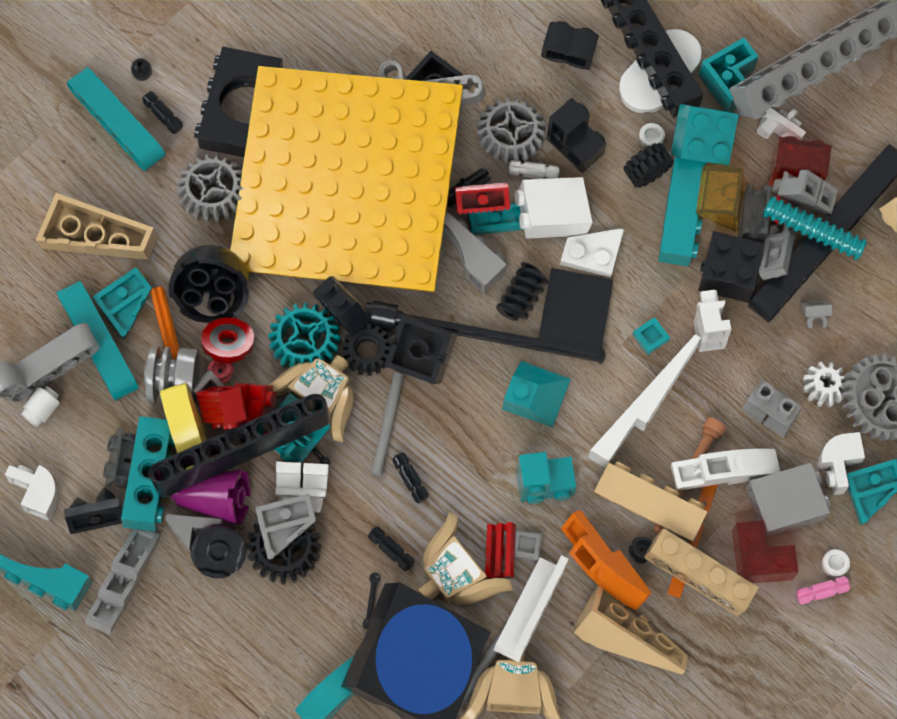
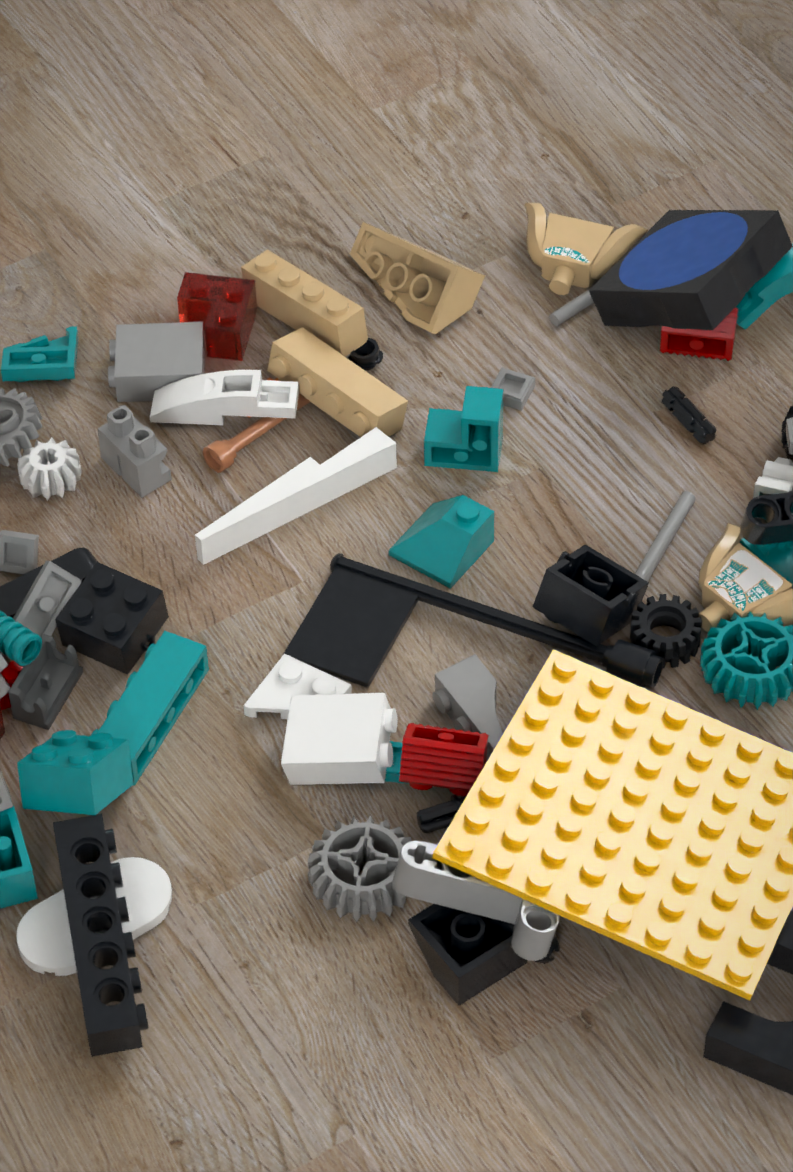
camera: 160 degrees left, 20 degrees down
(342, 305) = (691, 666): black brick -> none
(374, 580) = (718, 393): black hinge -> none
(410, 477) = (643, 482): black axle -> none
(454, 571) = (611, 365): tan torso -> none
(495, 550) = (557, 364): red tile -> none
(521, 292) = (421, 648): black piece -> none
(530, 608) = (528, 306): white fence -> none
(533, 170) = (339, 810): white axle -> none
(569, 45) = (224, 975): black brick -> none
(573, 137) = (270, 830): black brick -> none
(606, 568) = (423, 340): orange slope -> none
(648, 165) = (175, 762): black tyre -> none
(651, 134) = (148, 827): white tile -> none
(651, 336) = (261, 560): teal tile -> none
(708, 322) = (173, 549): white hips -> none
(721, 195) = (84, 697): clear yellow slope -> none
(823, 590) = (154, 278): bright pink axle -> none
(835, 563) = (129, 302): white tile -> none
(838, 453) = (73, 394): white brick -> none

